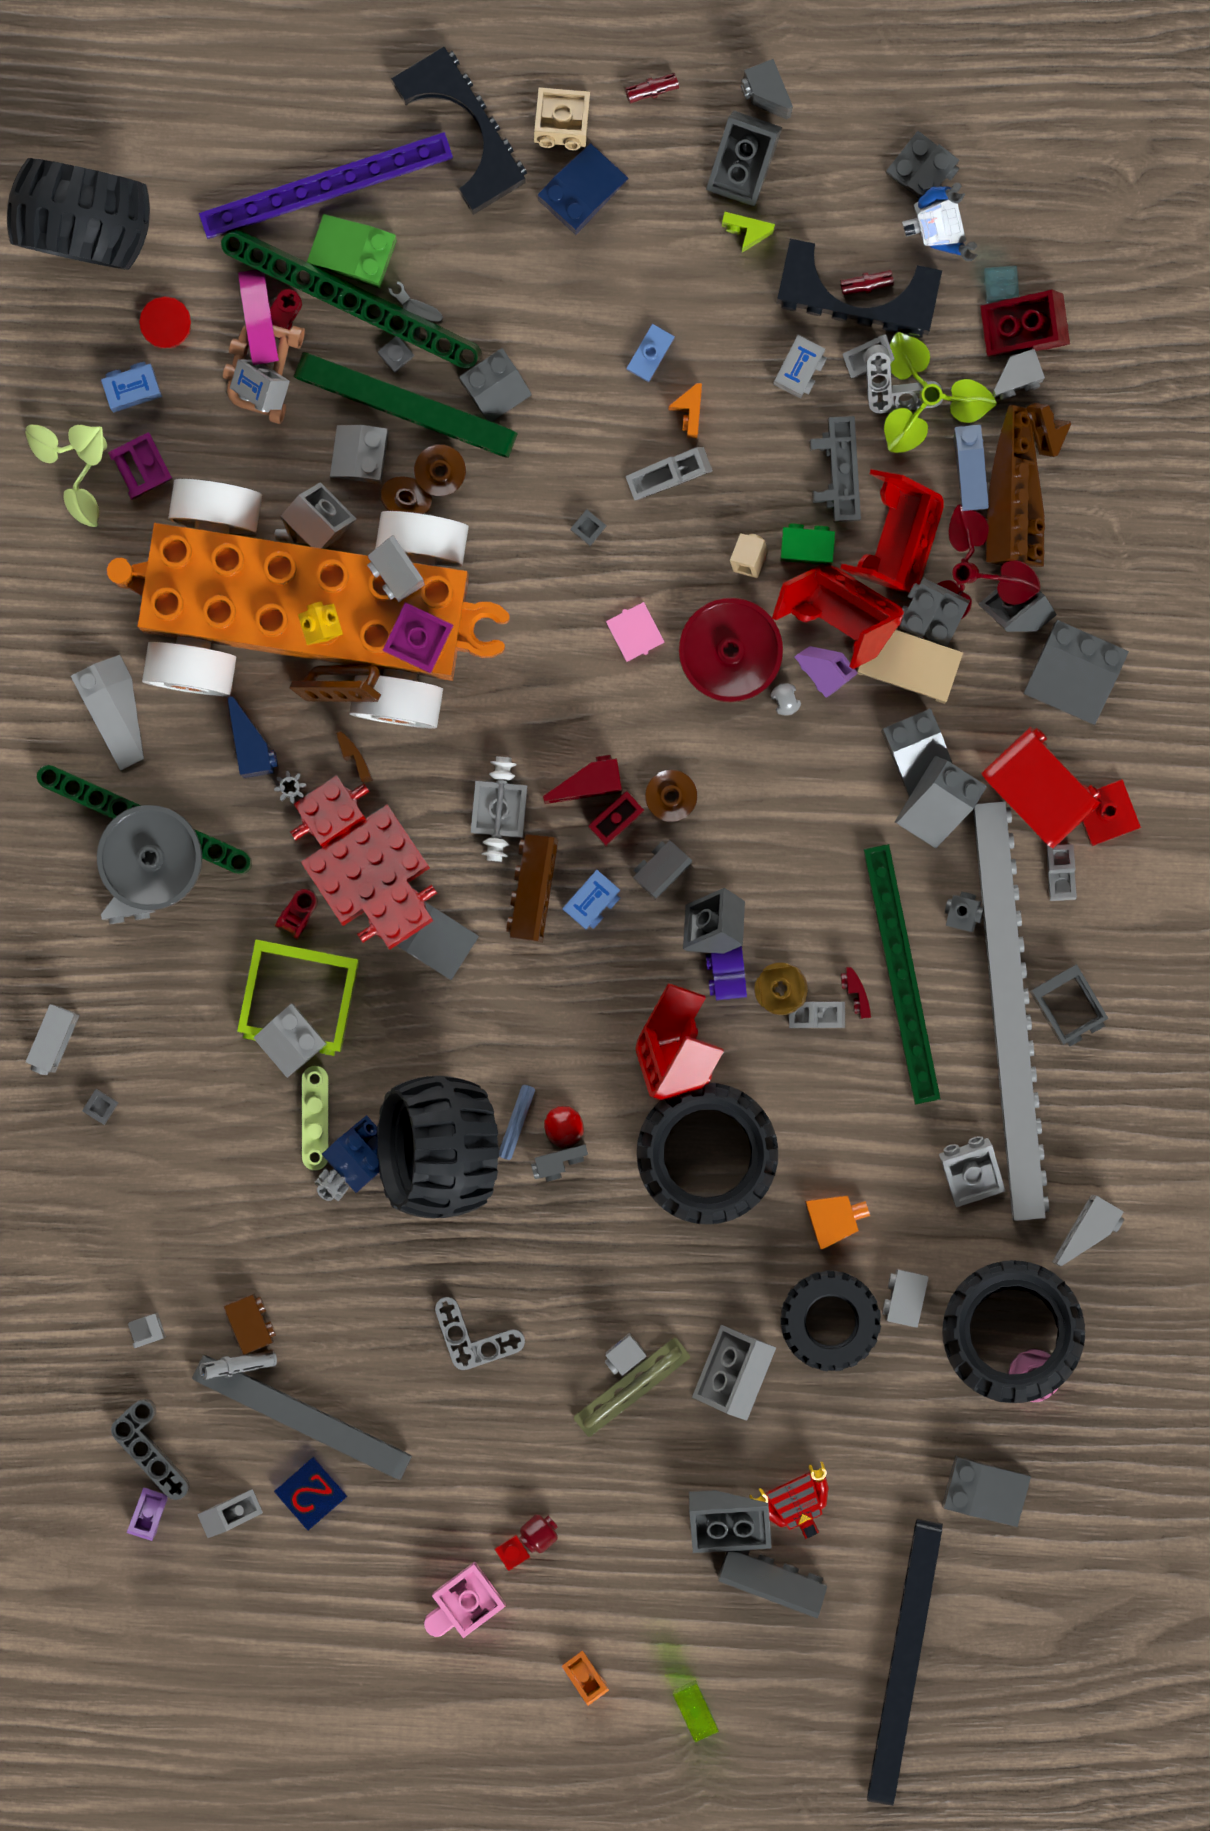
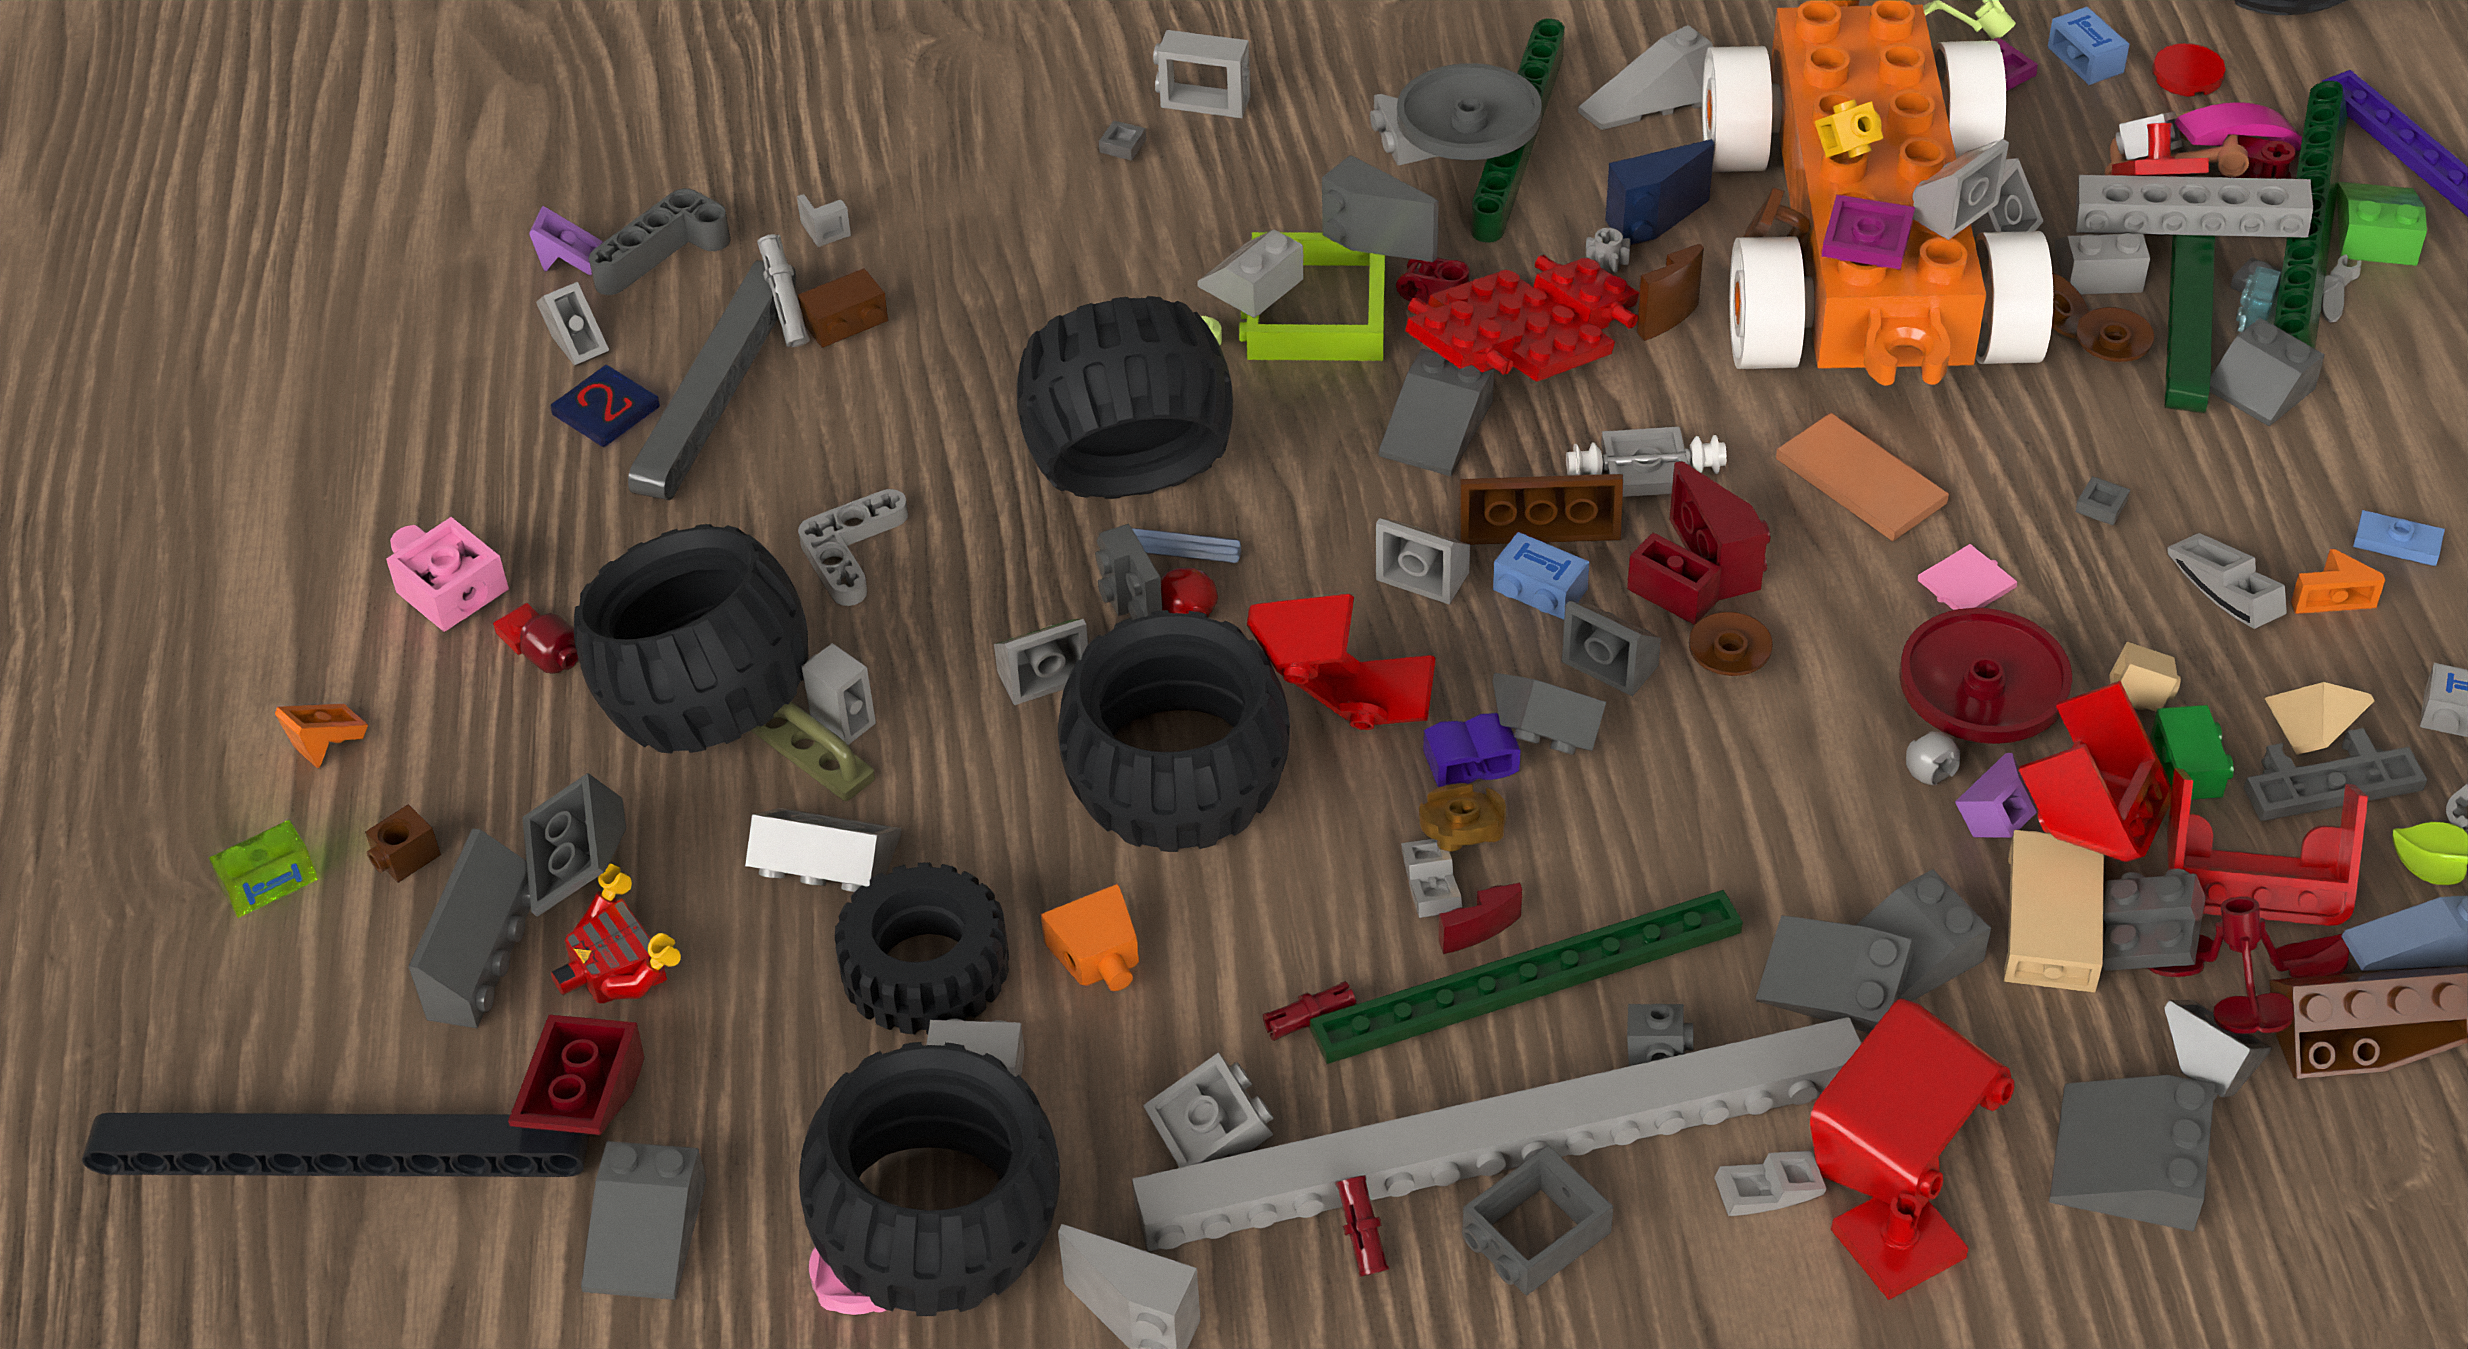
camera: 85 degrees right, 40 degrees down
(258, 950) = (1378, 212): none -> dark grey slope
(302, 392) = (2159, 158): none -> tile
(359, 319) = (2194, 206): none -> light grey brick
(428, 365) = (2259, 298): none -> clear light blue piece
(533, 672) = (1862, 476): none -> nougat tile
(560, 1480) = (691, 638): none -> black tyre
(565, 971) = (1420, 560): none -> light grey slope
(607, 1224) = (1040, 659): none -> light grey slope
(685, 1616) = (402, 844): none -> reddish brown brick
(791, 459) = (2317, 714): none -> tan slope
(898, 1524) = (579, 1075): none -> dark red slope
(903, 1103) = (1298, 1014): none -> dark red pin
(1061, 1100) = (1362, 1226): none -> dark red pin

